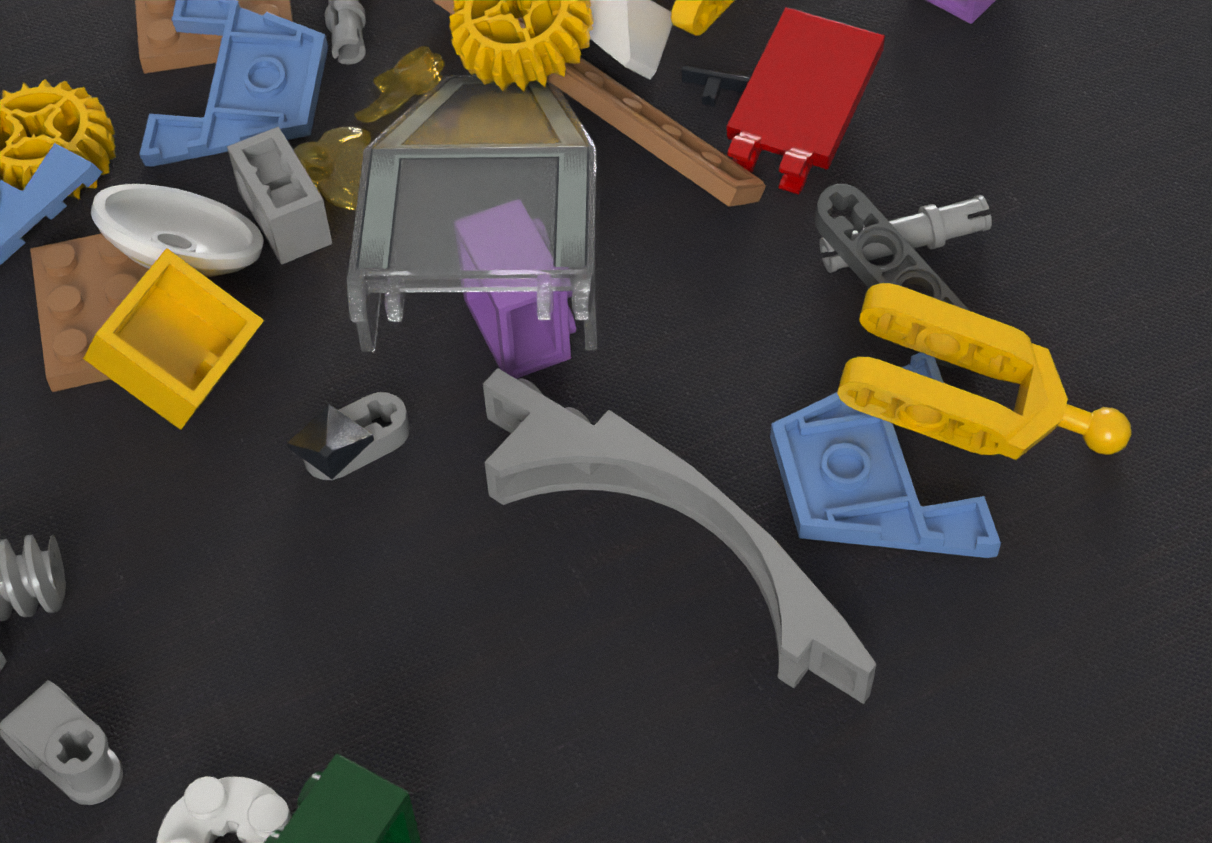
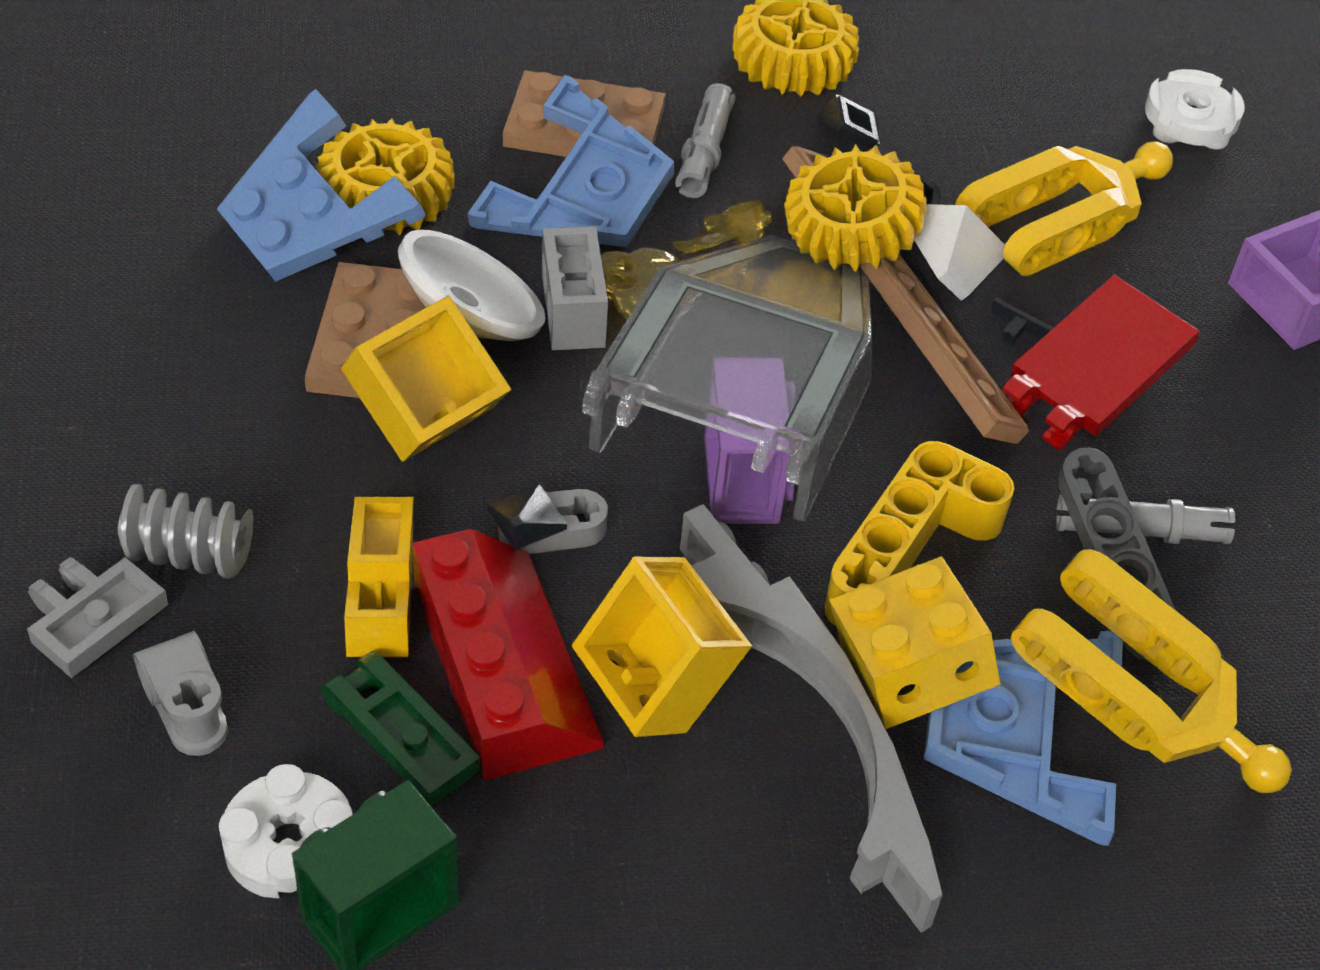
camera: 15 degrees right, 5 degrees down
(210, 554) = (379, 577): none -> yellow slope
(295, 696) = (402, 727): none -> dark green plate
(361, 586) = (502, 653): none -> red slope
(523, 519) = (669, 644): none -> yellow piece
(703, 272) = (930, 489): none -> yellow beam
(752, 422) = (916, 633): none -> yellow piece

